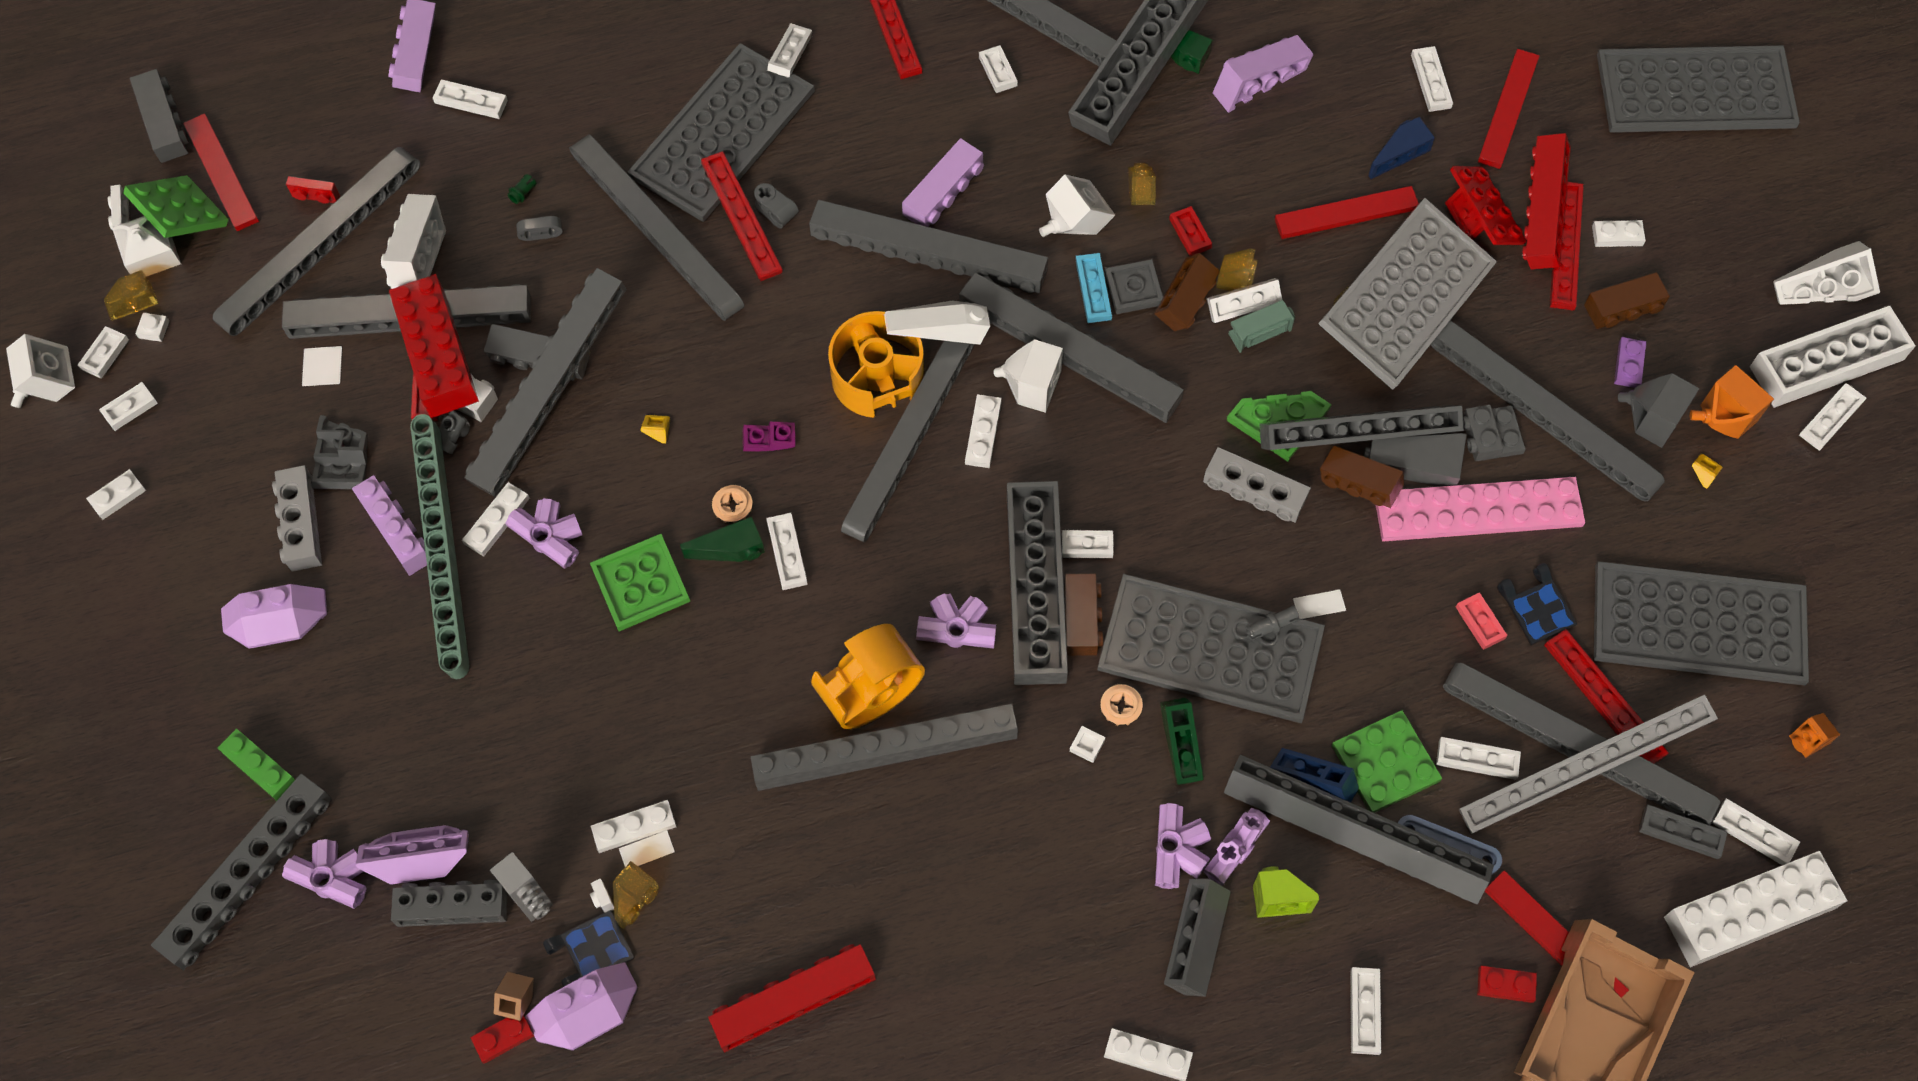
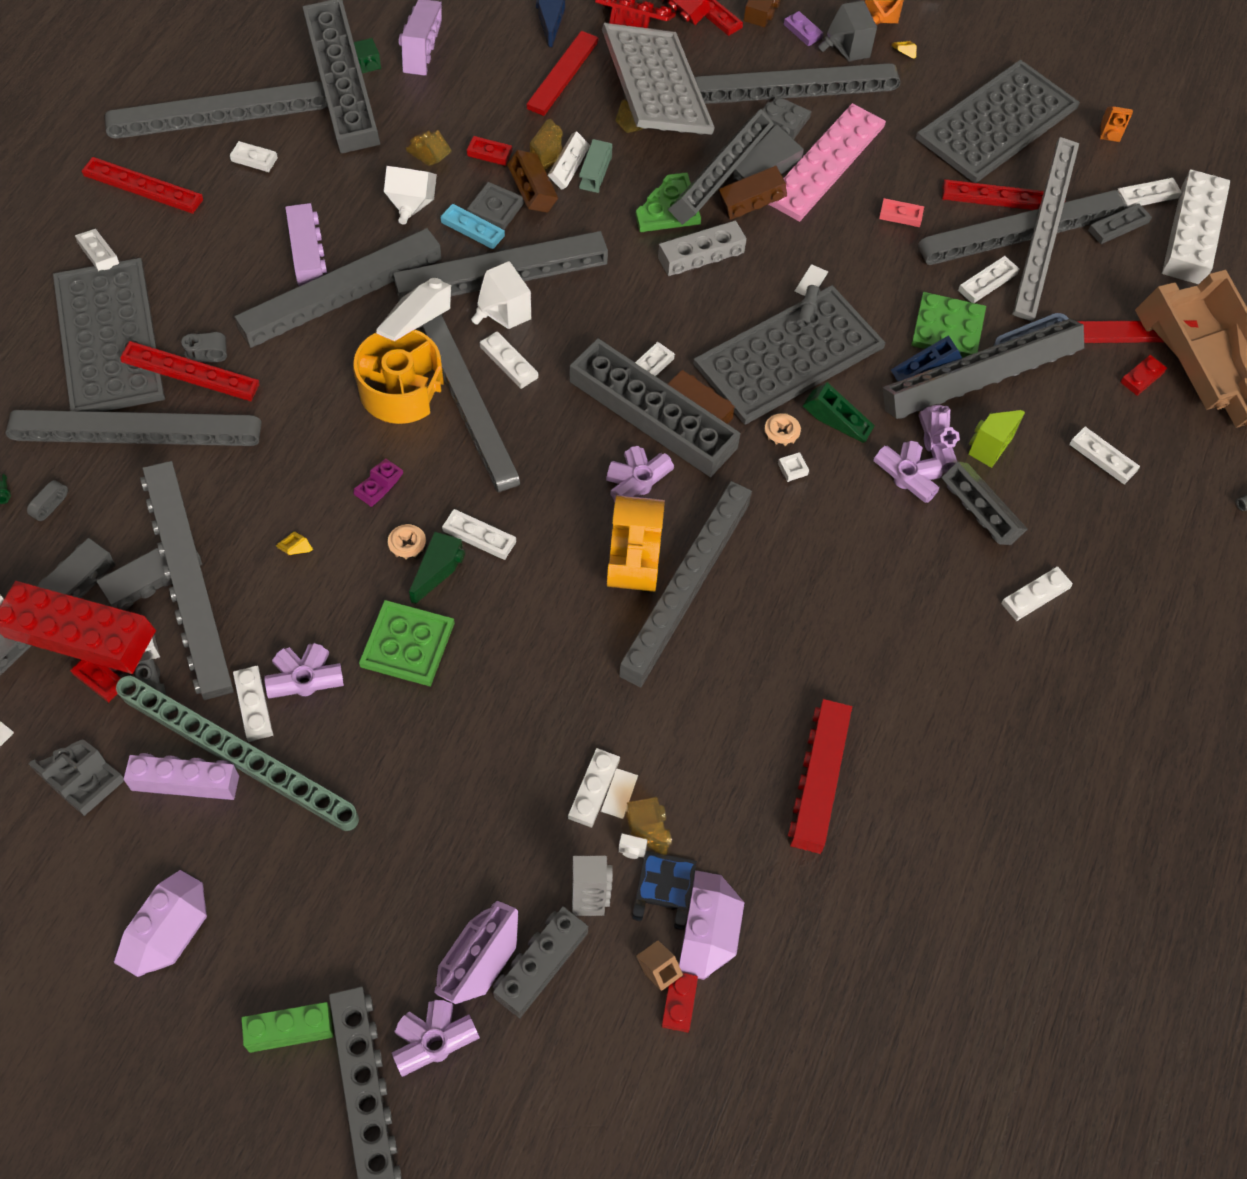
camera: 55 degrees left, 5 degrees down
(307, 552) = (69, 820): light grey brick -> none
(1539, 609) = (916, 181): black flag -> none

